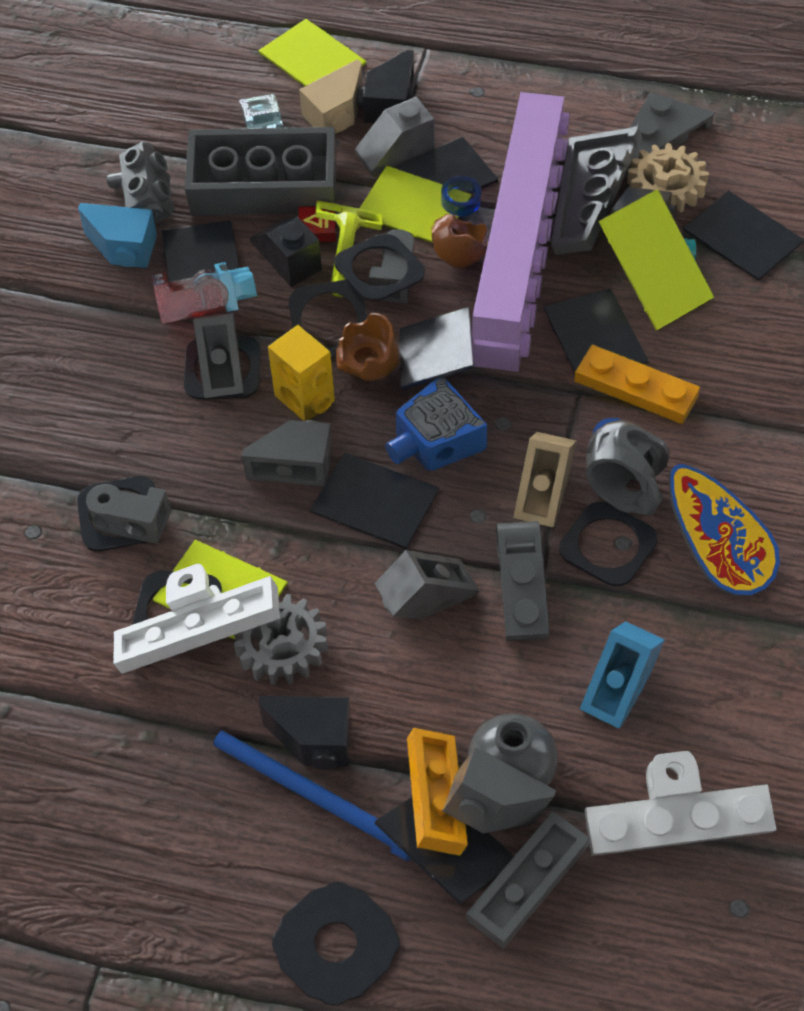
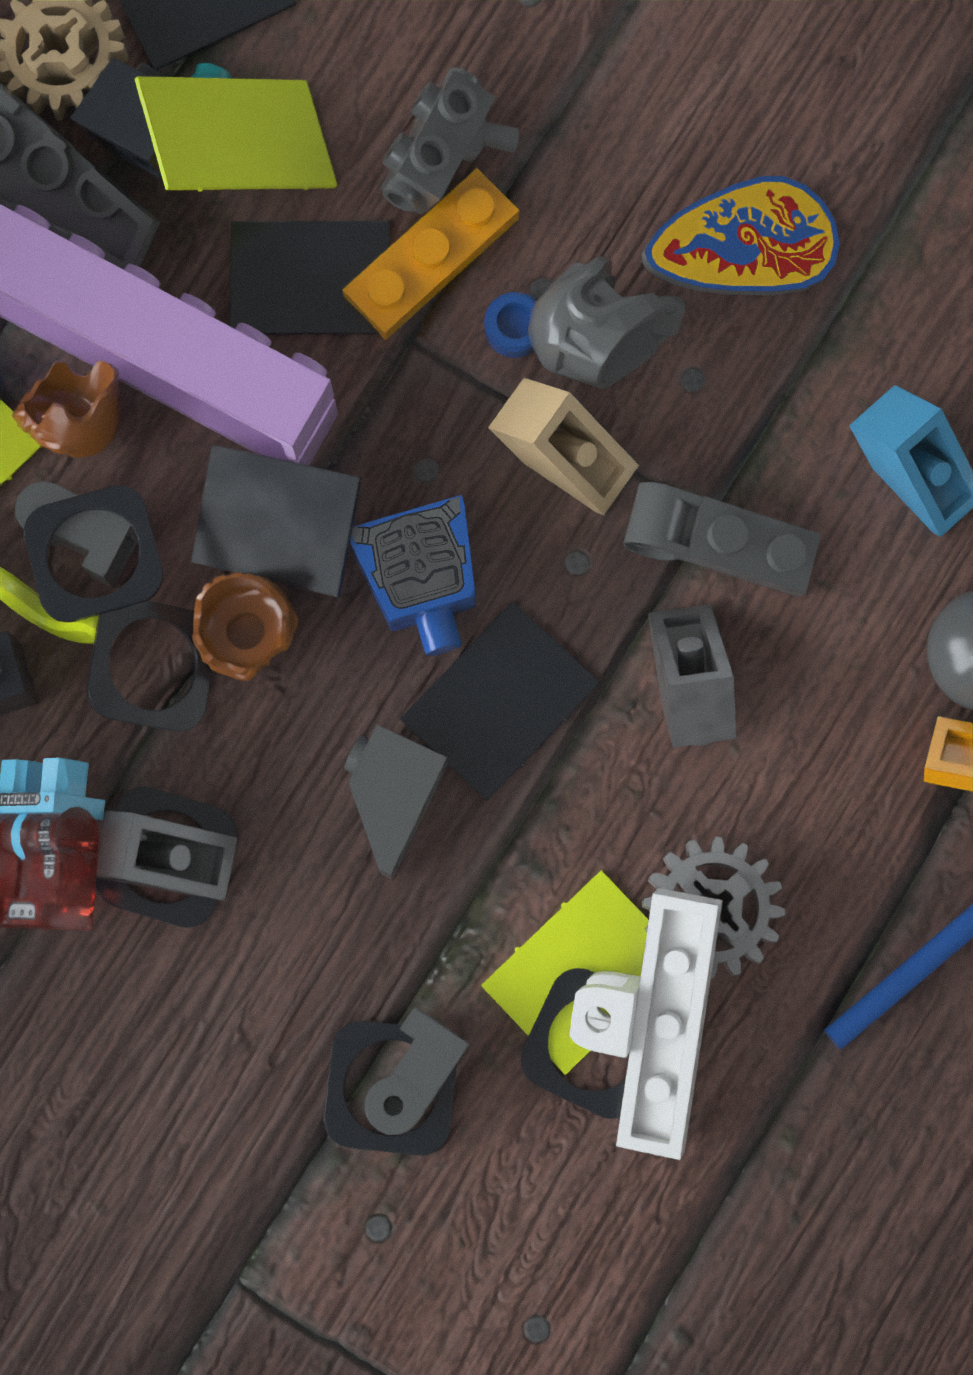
camera: 75 degrees left, 25 degrees up
(302, 373) = (268, 736): yellow brick -> none
(310, 727) = (873, 904): black slope -> none
(616, 576) = (679, 455): black piece -> none
(713, 359) = (446, 130): none -> dark grey brick

